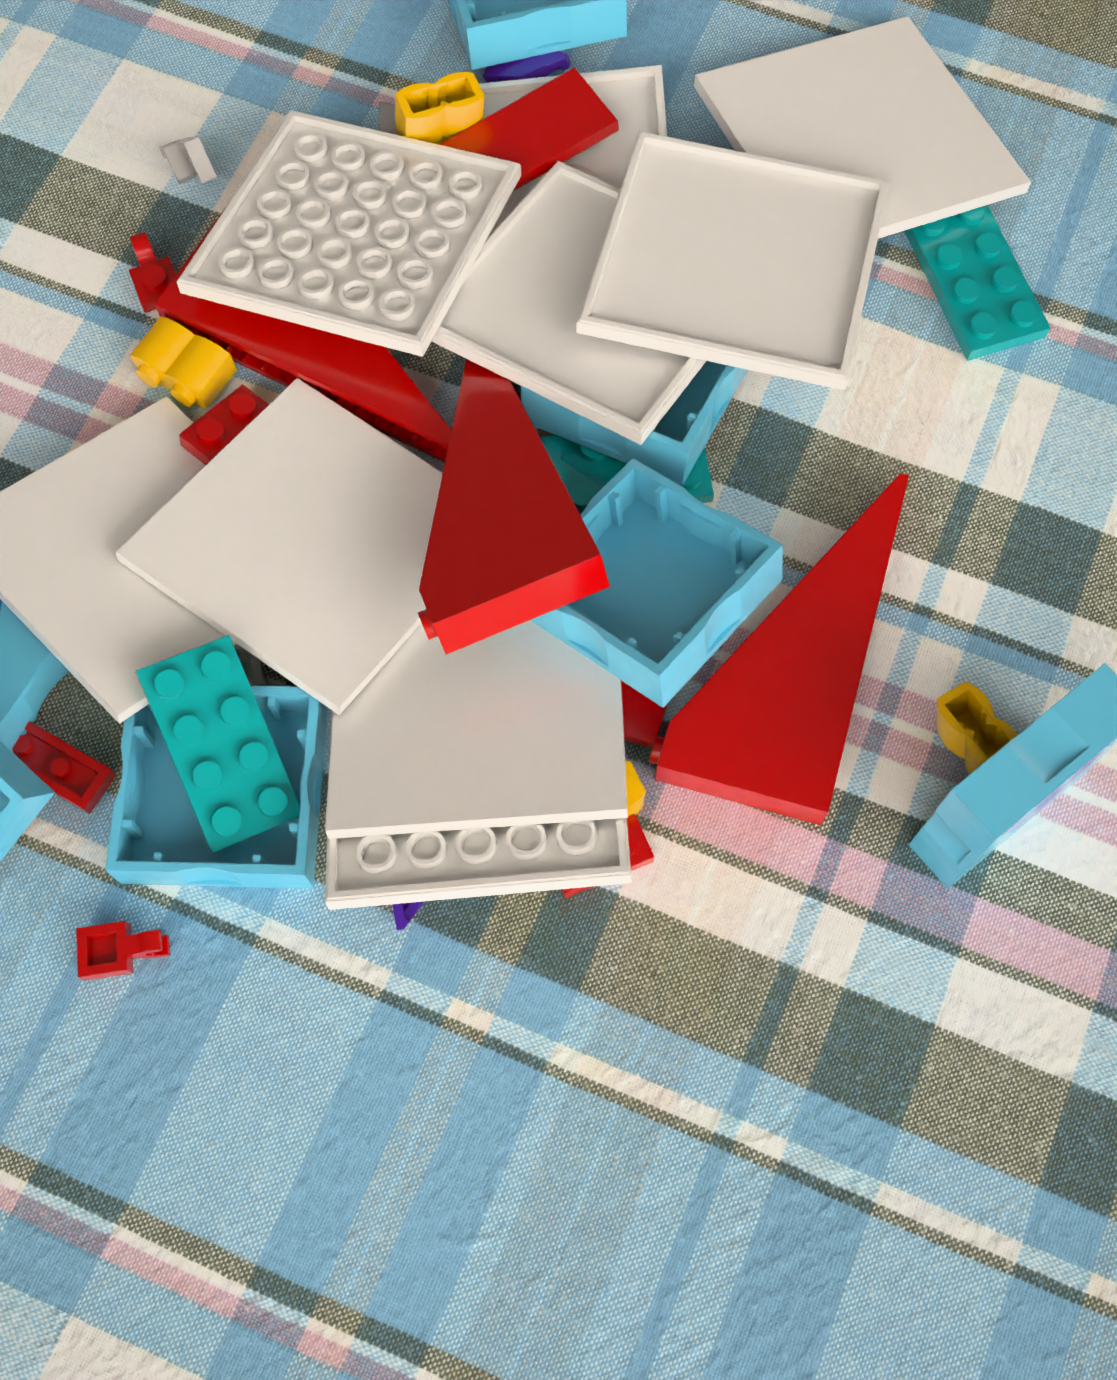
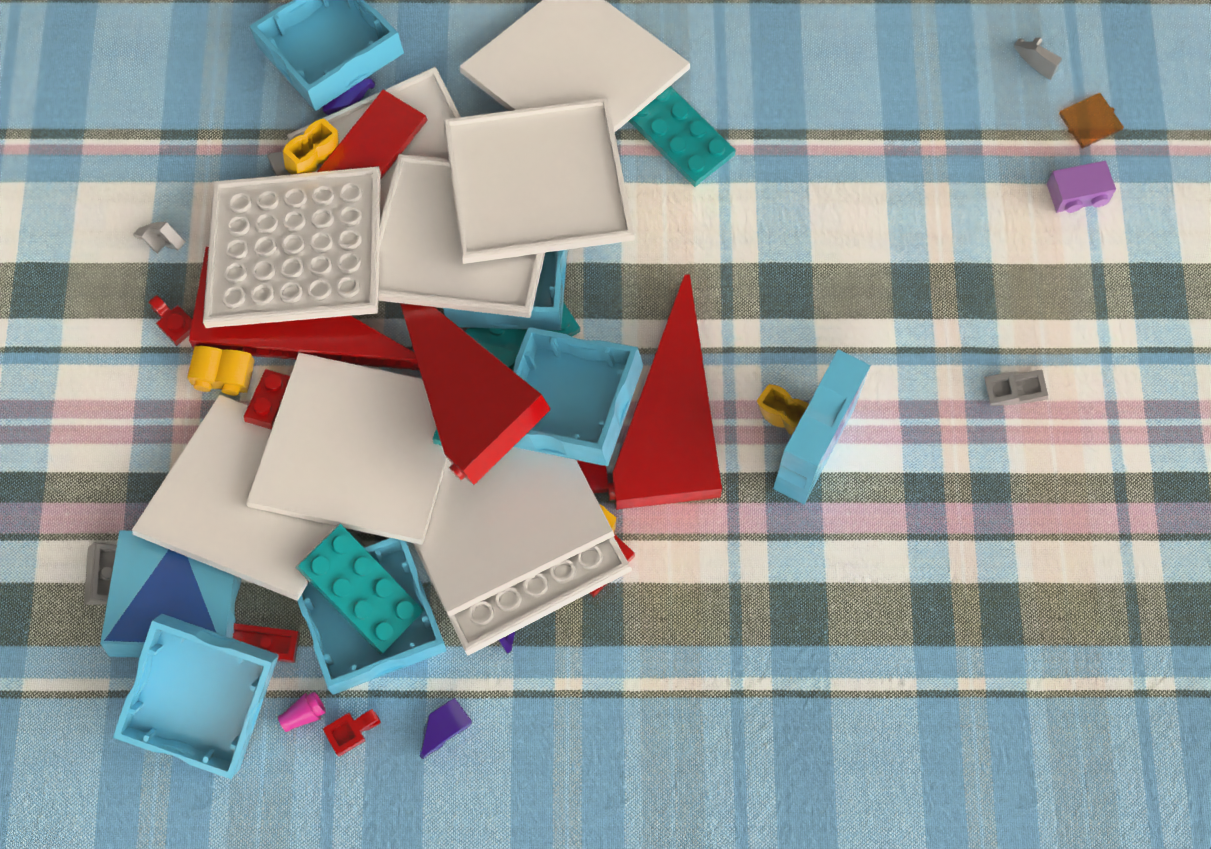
camera: 25 degrees left, 0 degrees up
(64, 891) = (302, 712): none -> dark pink cone
(253, 999) = (443, 725): none -> dark purple slope

